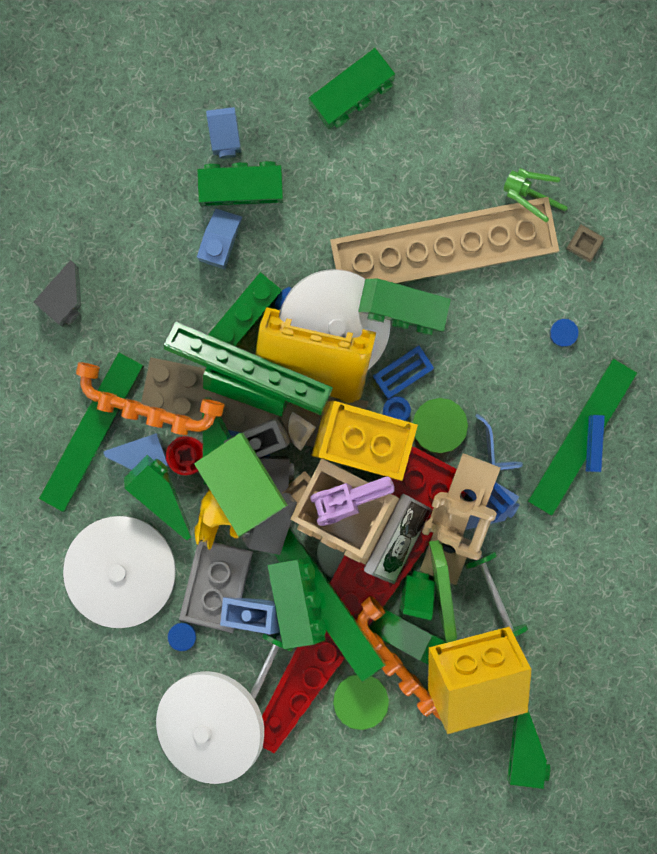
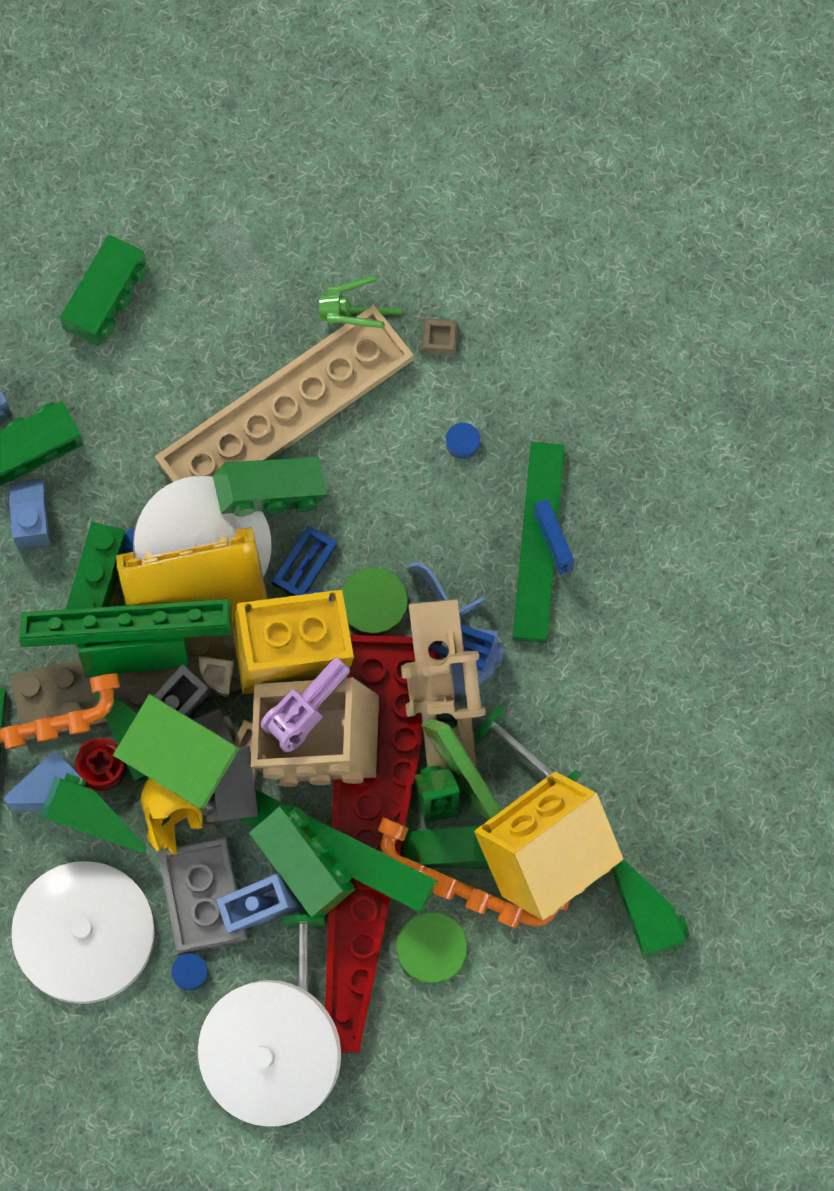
camera: 20 degrees left, 15 degrees down
(329, 558) = (317, 803): sand green tile -> none
(397, 539) = (383, 735): tile -> none

